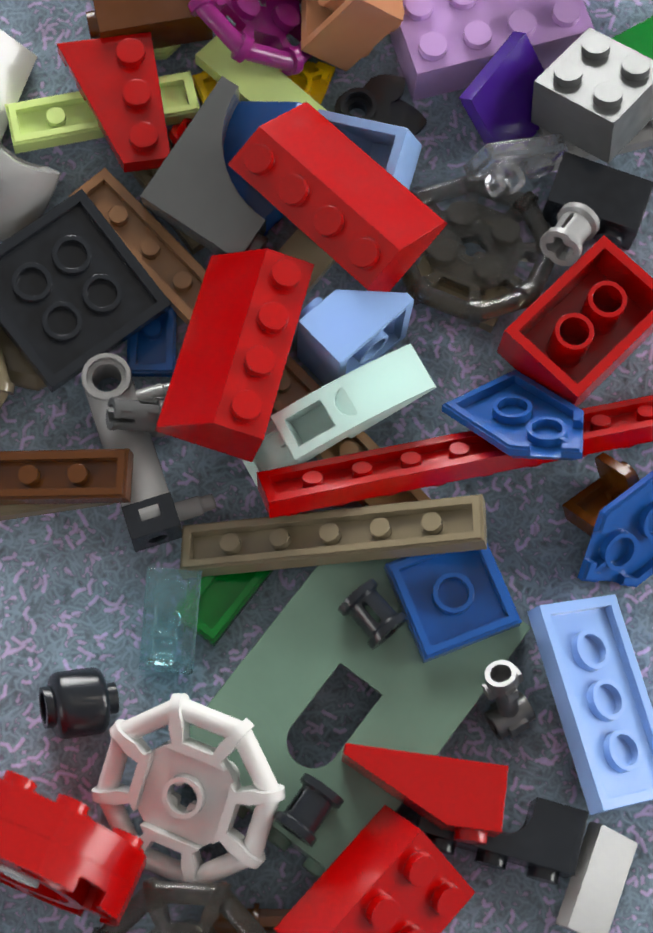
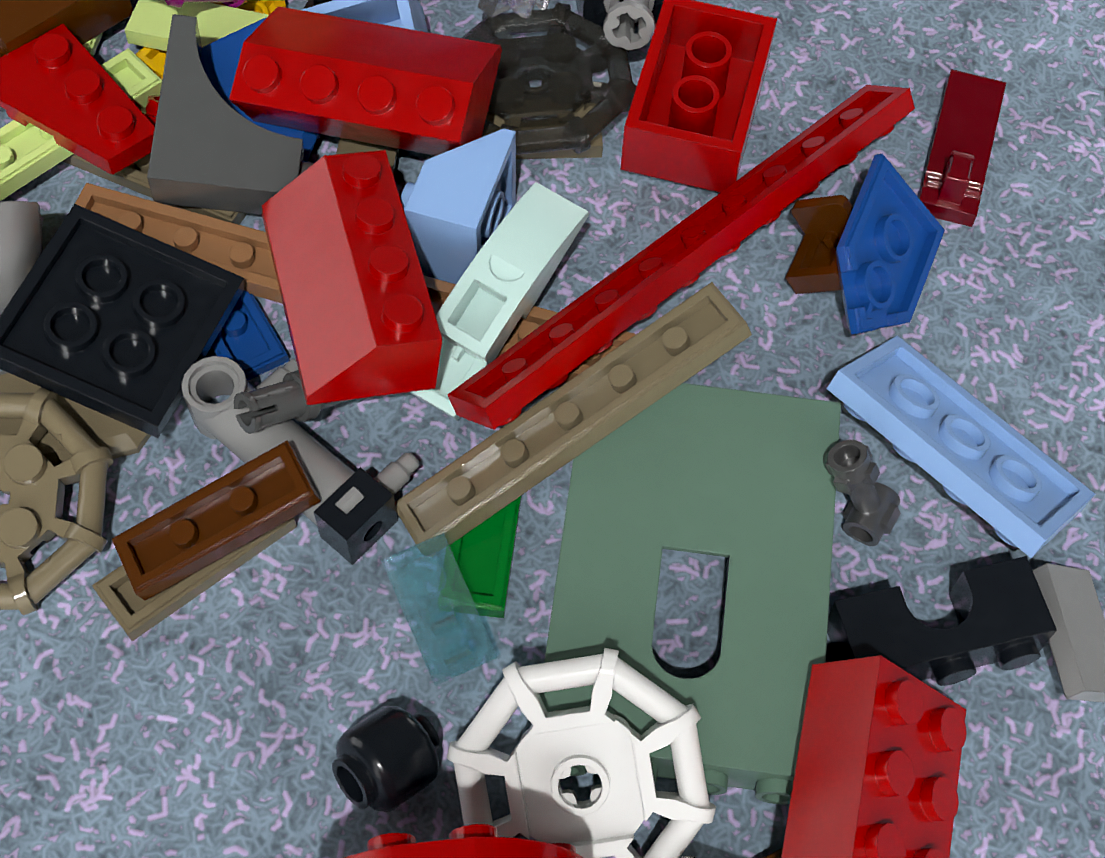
camera: 25 degrees left, 10 degrees down
(308, 809) = (733, 716): black bush -> none
(355, 607) = (669, 469): black bush -> none
(441, 789) = (868, 610): red slope -> none
(452, 599) = (740, 415): blue tile -> none
(521, 418) = (695, 206): blue tile -> none

